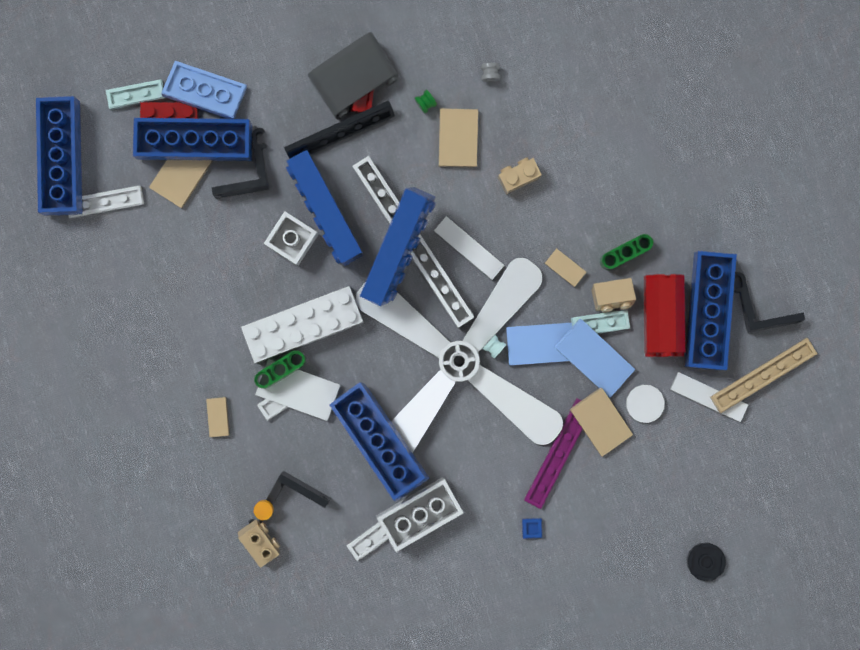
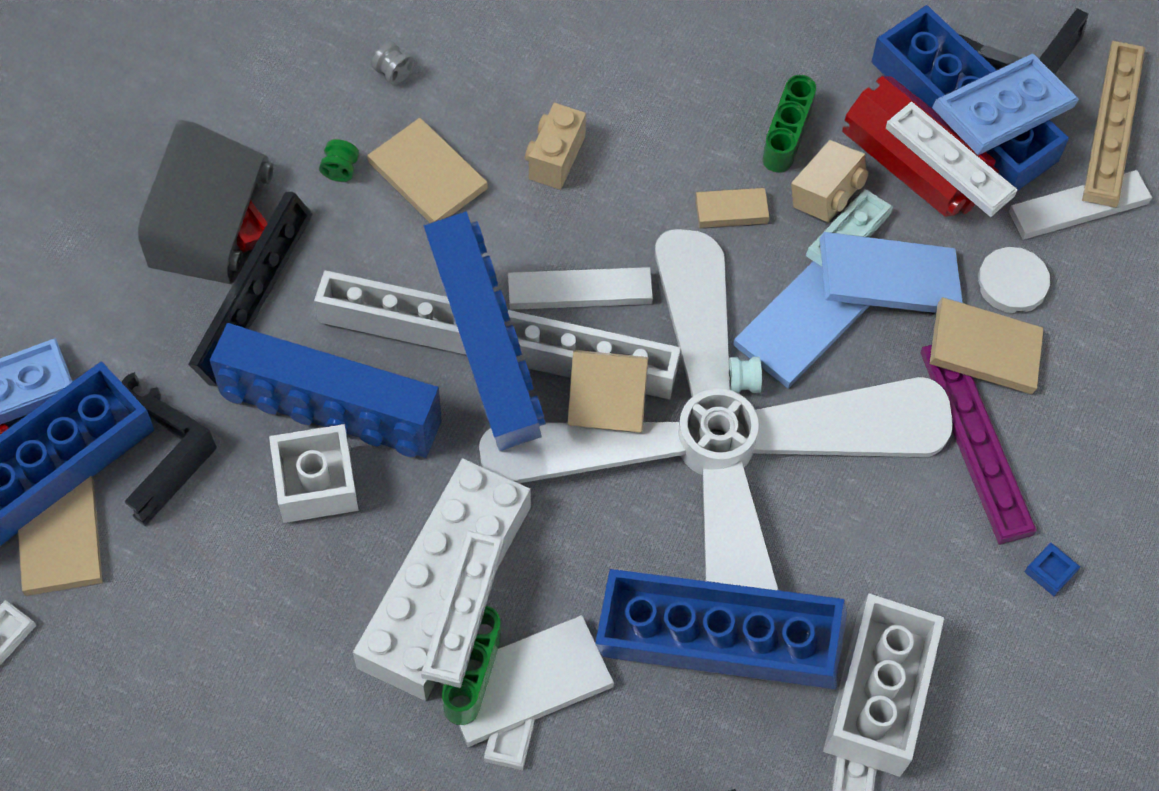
camera: 50 degrees left, 25 degrees down
(292, 348) = (462, 609): none -> white tile
(430, 308) = (607, 391): none -> tan tile
(660, 339) = (951, 159): none -> white tile
(714, 332) = (1005, 104): none -> light blue tile

